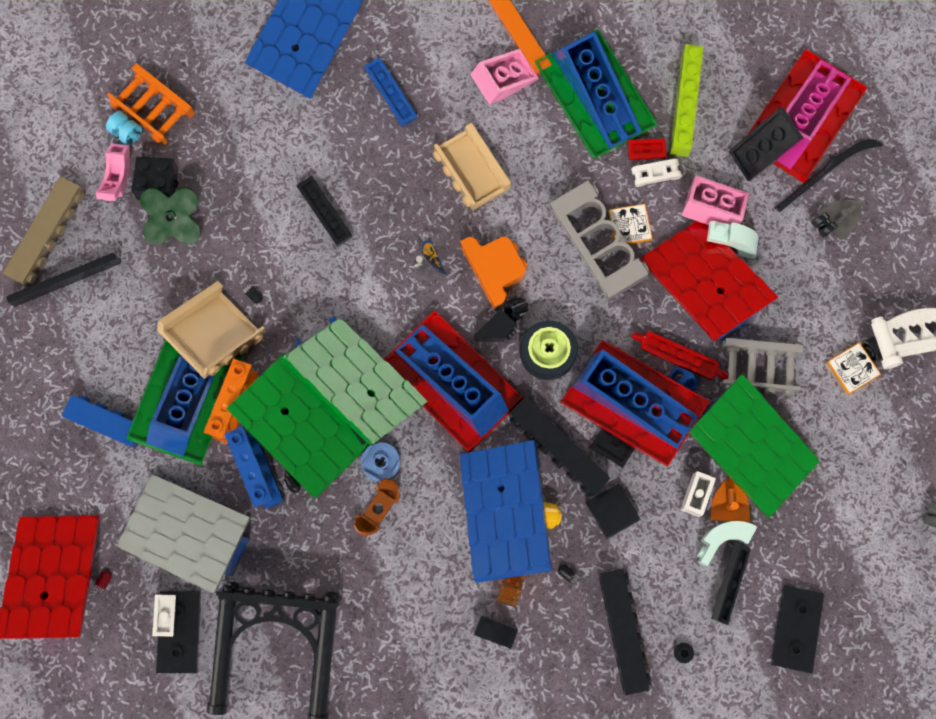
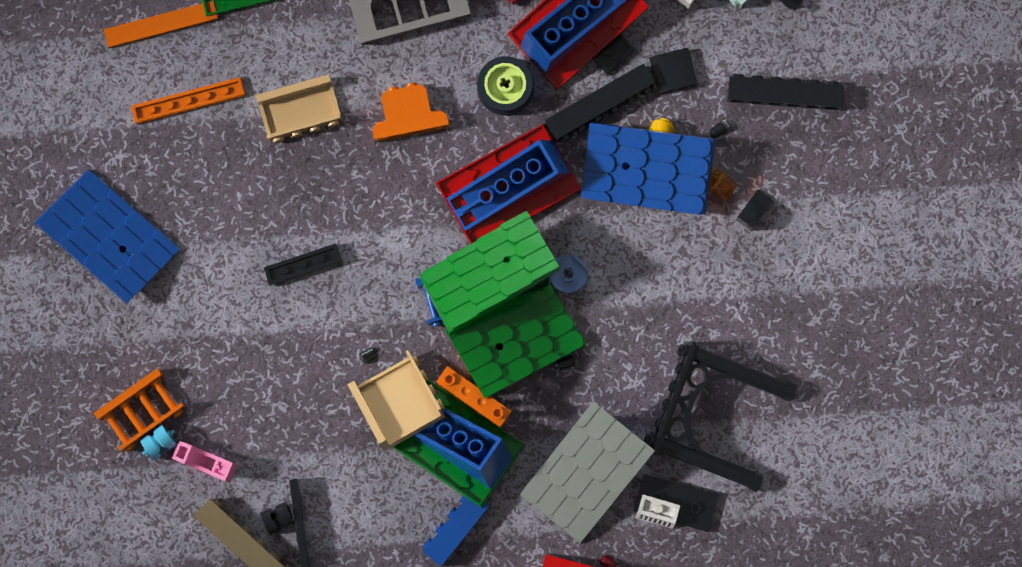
camera: 70 degrees left, 5 degrees up
(76, 251) = (284, 515): none -> black wheel
(154, 173) = (222, 423): black brick -> none
(180, 206) = (263, 402): dark green plant -> none
(254, 468) = (544, 391): blue fence -> none
(387, 495) = (600, 274): dark orange piece -> none
(390, 92) = (196, 167): blue plate -> none
(429, 257) = (381, 173): shield -> none
(451, 69) = (188, 100): none -> orange tile
(497, 329) = (470, 128): black slope -> none
(503, 75) = (212, 50): bright pink slope -> none
(516, 307) = (454, 105): black gear -> none
(677, 653) = (818, 51): black plate -> none

